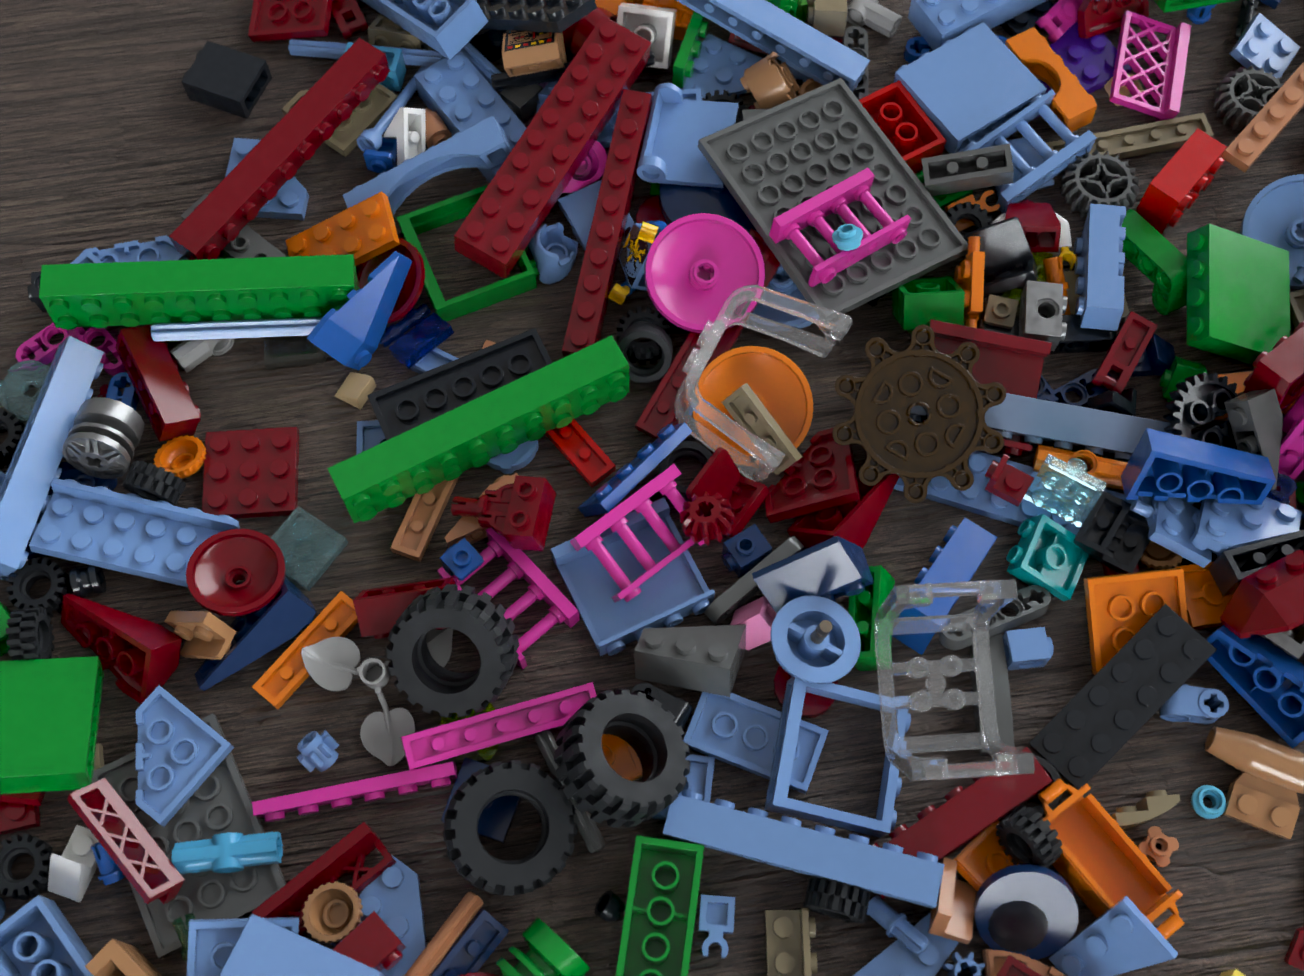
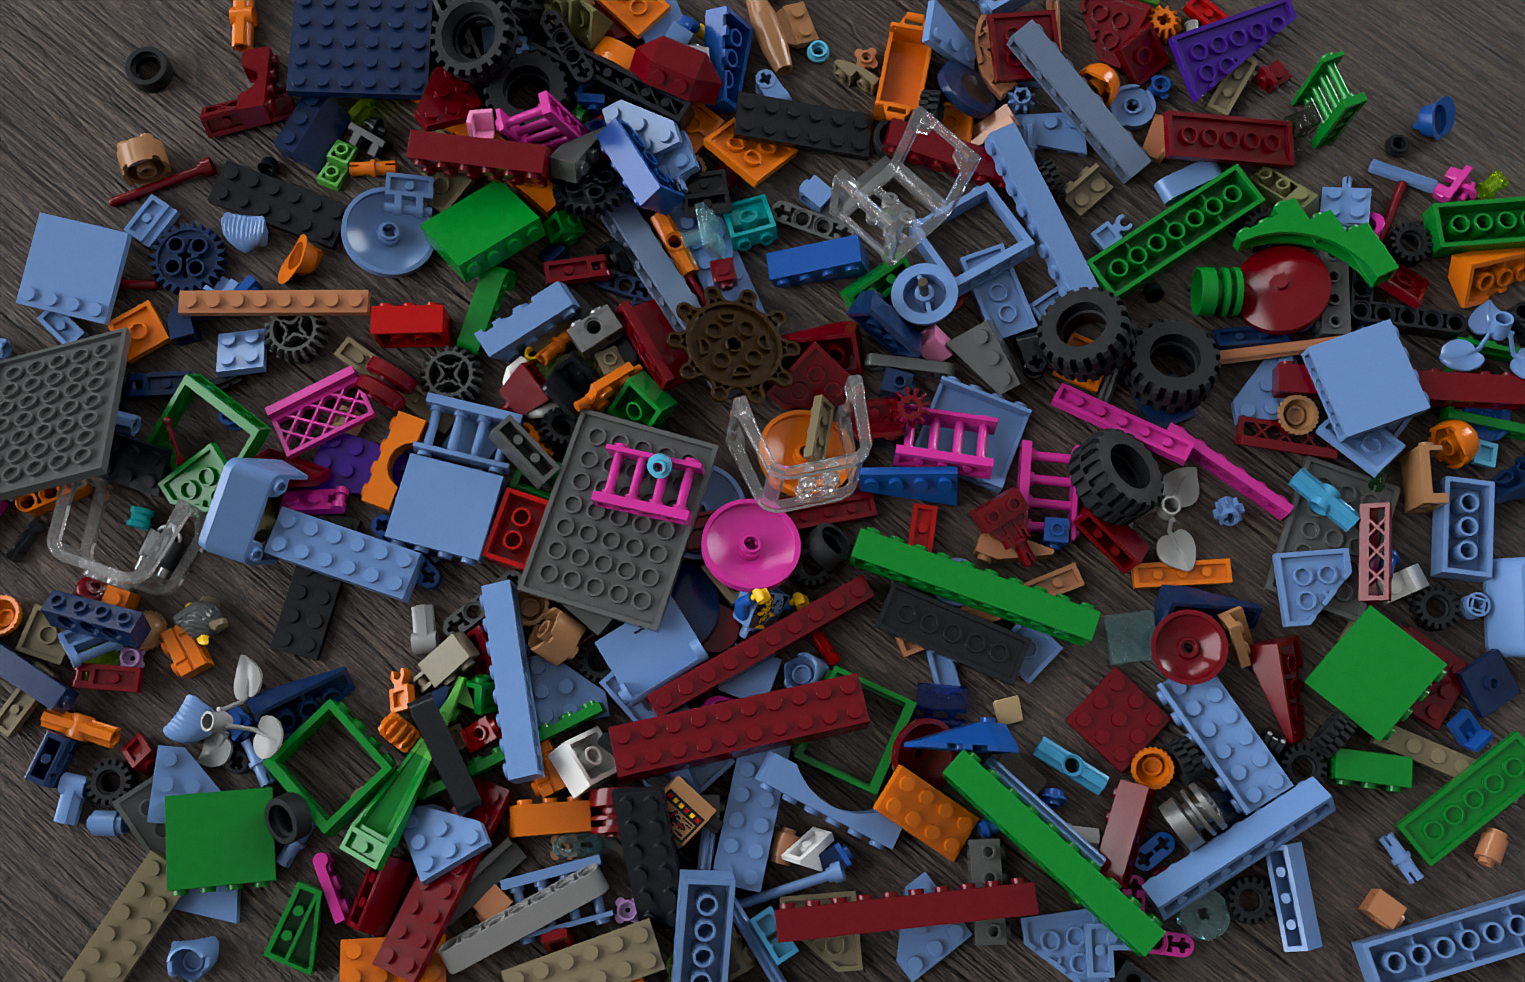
camera: 130 degrees left, 10 degrees up
(240, 399) = (1084, 775): none -> dark azure piece
(246, 357) = (1054, 798): none -> blue plate
(560, 291) = (825, 648): none -> red axle
(1133, 112) = (384, 386): none -> dark red wheel

